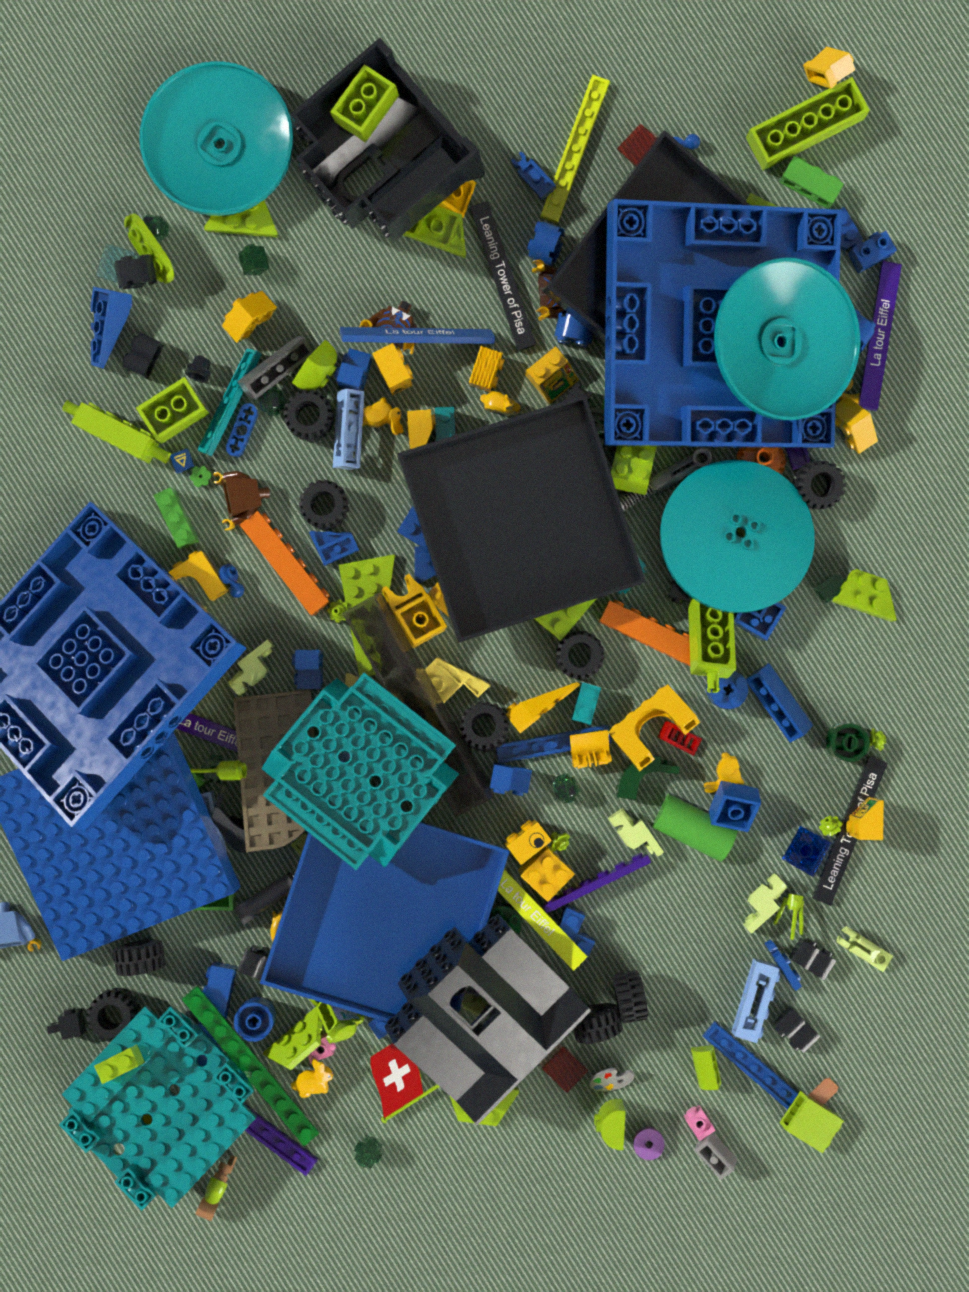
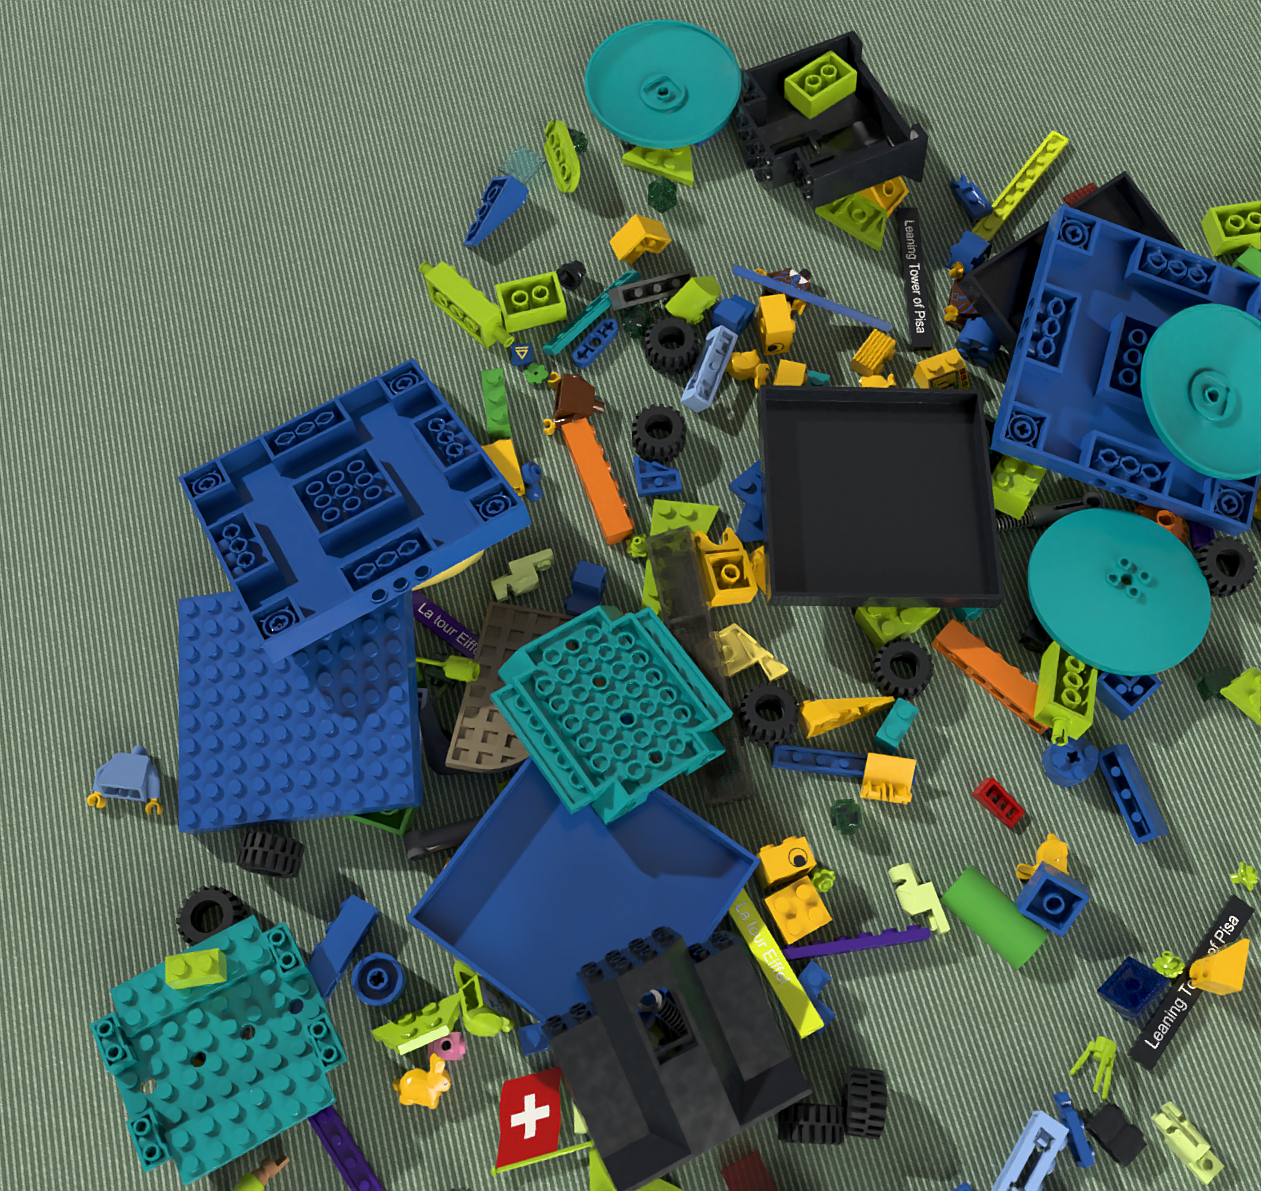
camera: 15 degrees right, 20 degrees down
(70, 1024) = (155, 915): black brick -> none
(135, 272) = (540, 171): black brick -> none
(143, 355) = (519, 248): black brick -> none
(251, 1065) = (351, 1031): green plate -> none
(253, 962) = (399, 908): black brick -> none
(510, 778) = (781, 783): blue brick -> none
(630, 778) = (944, 820): dark green arch -> none
(663, 703) = (989, 754): yellow arch -> none
(763, 902) = (1065, 1036): yellowish green plate -> none
(847, 742) = (1209, 866): dark green brick -> none

